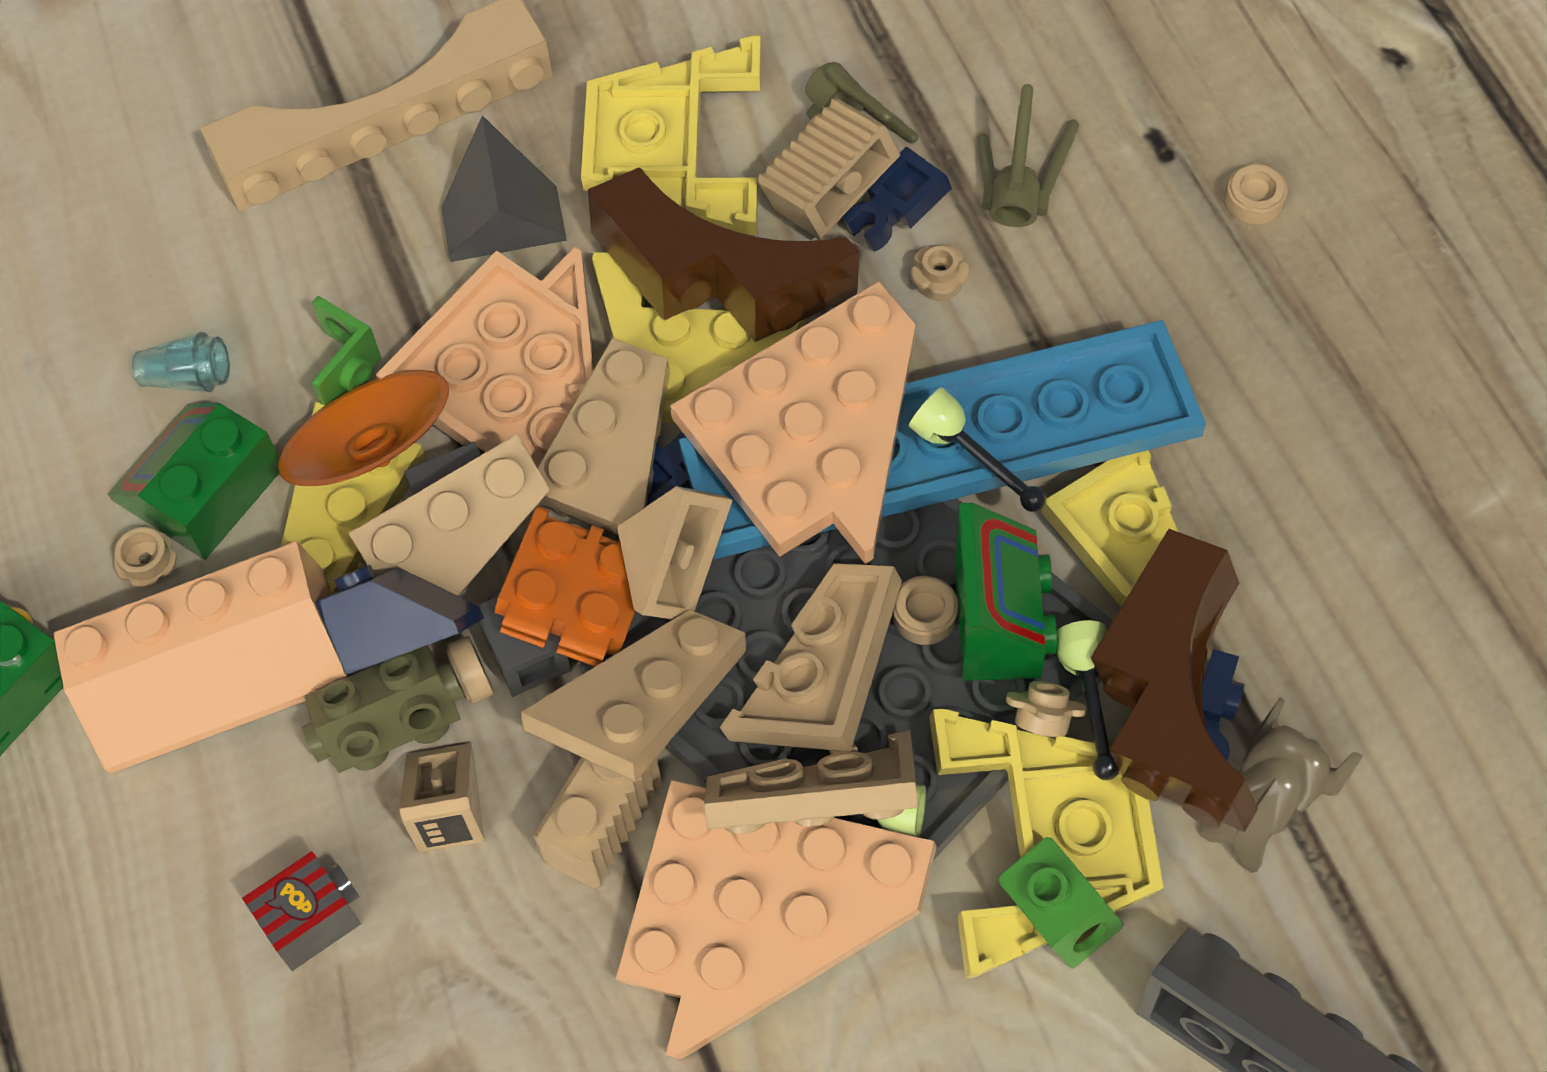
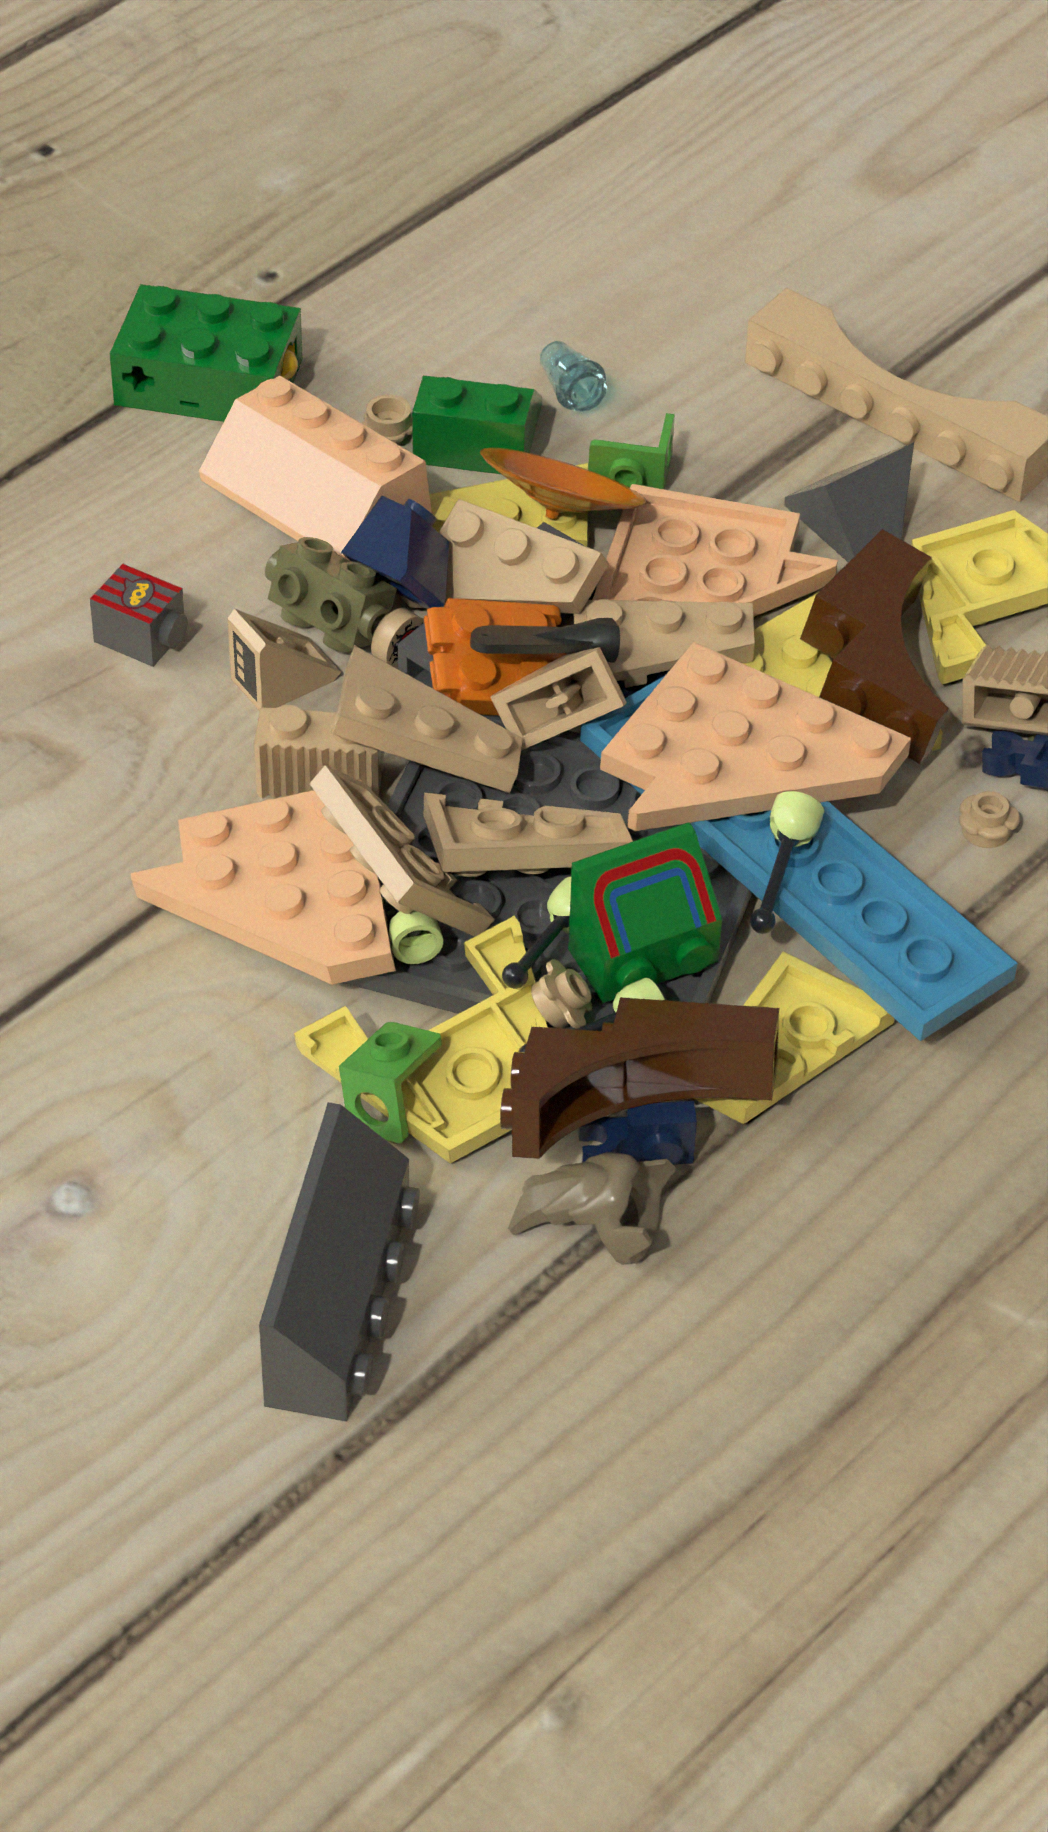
camera: 60 degrees right, 15 degrees down
(602, 534) = (546, 640): none -> pearl dark grey piece
(936, 657) = (516, 973): none -> black hinge

